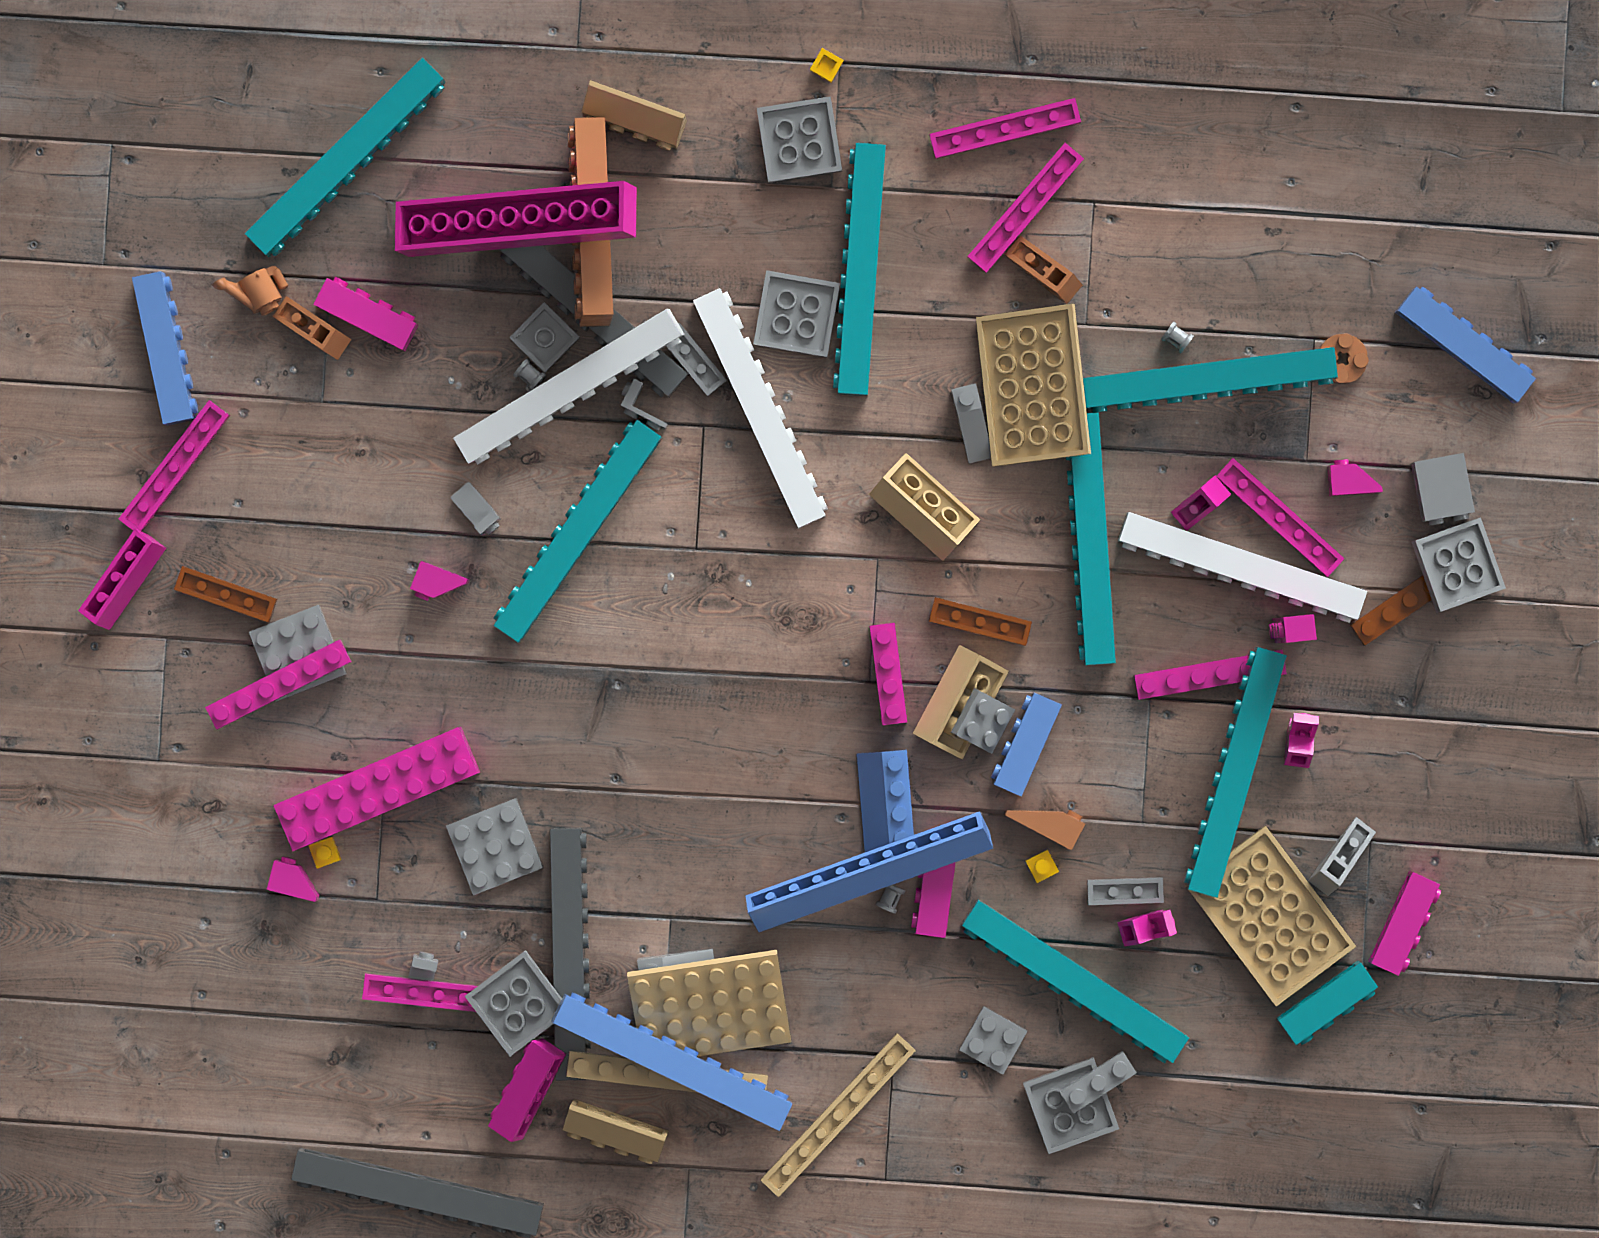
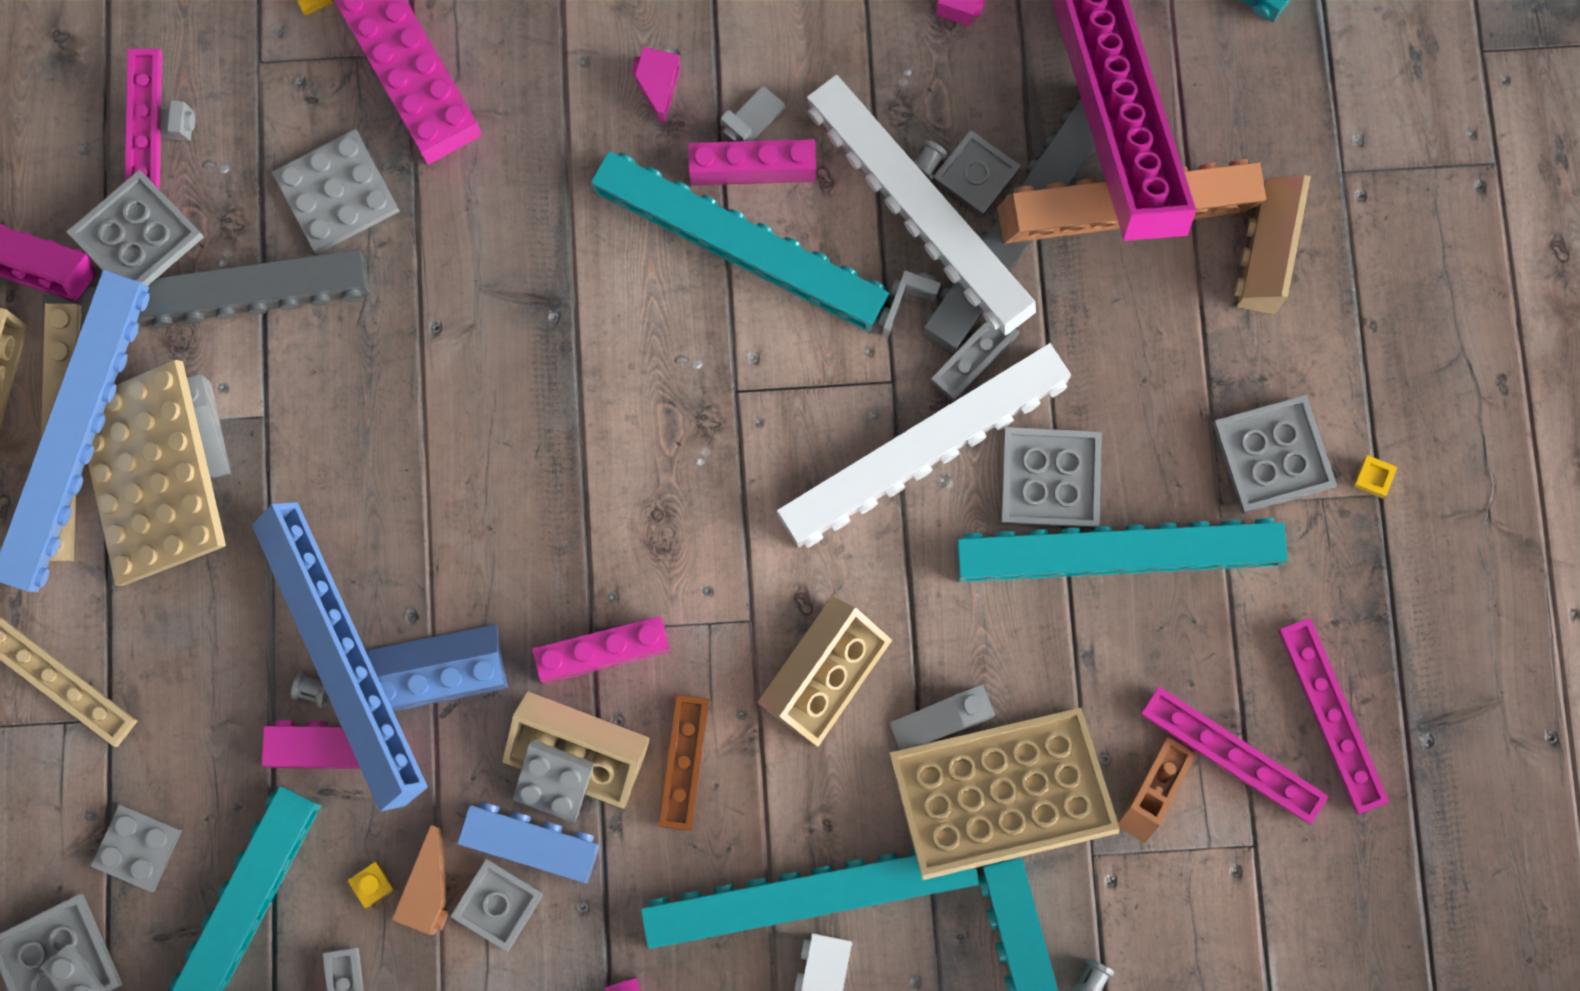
camera: 85 degrees right, 10 degrees down
(514, 513) = (752, 162): none -> dark pink brick
(1068, 772) = (497, 905): none -> light grey plate

